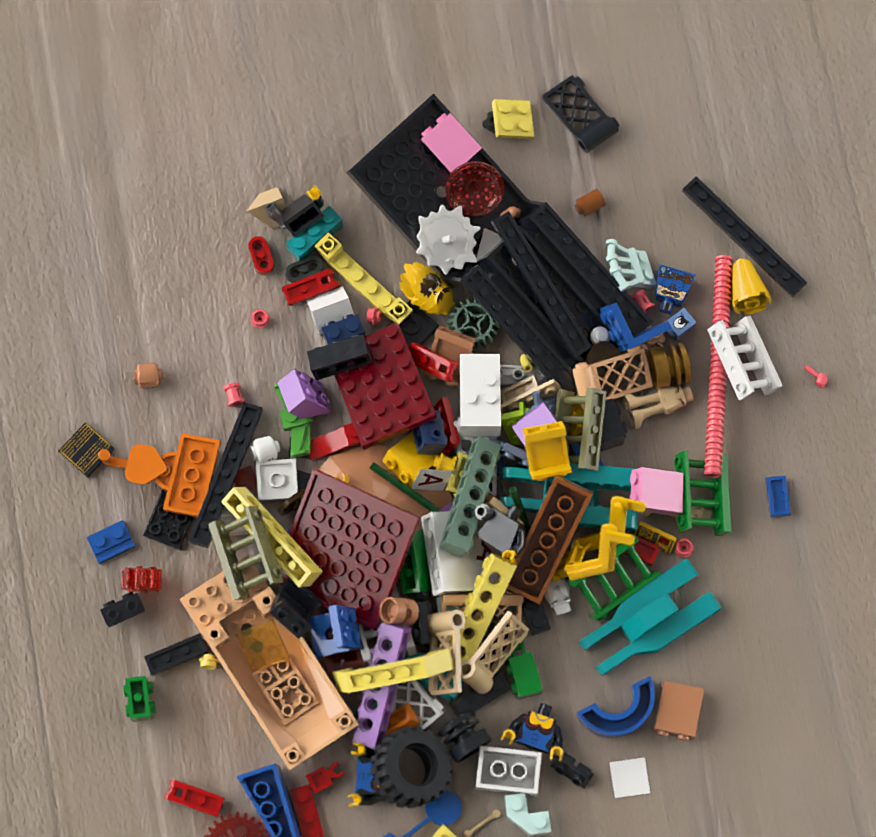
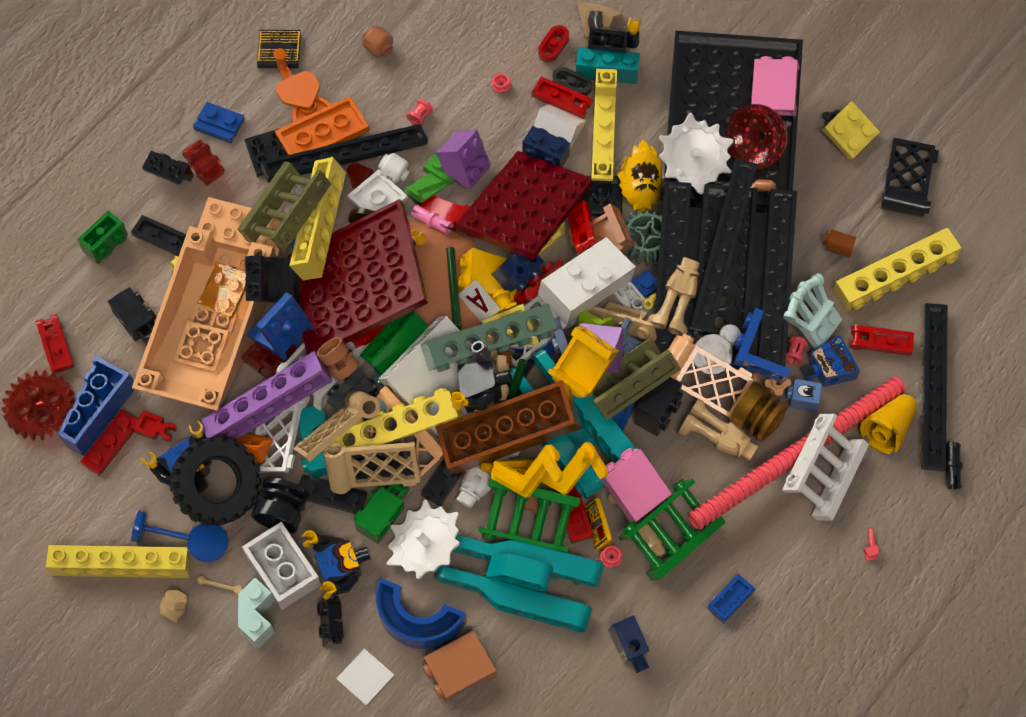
camera: 50 degrees right, 10 degrees down
(224, 724) = (133, 315): none -> black brick
(331, 457) = (432, 219): none -> bright pink pin
(339, 357) = (519, 155): black brick -> none
(374, 316) = (582, 160): coral plate -> none
(393, 672) = (285, 397): light yellow slope -> none
(507, 354) = (645, 283): none -> blue plate
(543, 334) = (681, 284): none -> tan piece
(570, 660) = (424, 540): none -> white piece
(650, 137) = (940, 242): none -> light yellow brick
(683, 239) = (882, 340): none -> red plate
(755, 586) = (626, 633): none -> dark blue torso
(808, 275) = (953, 466): none -> black pin

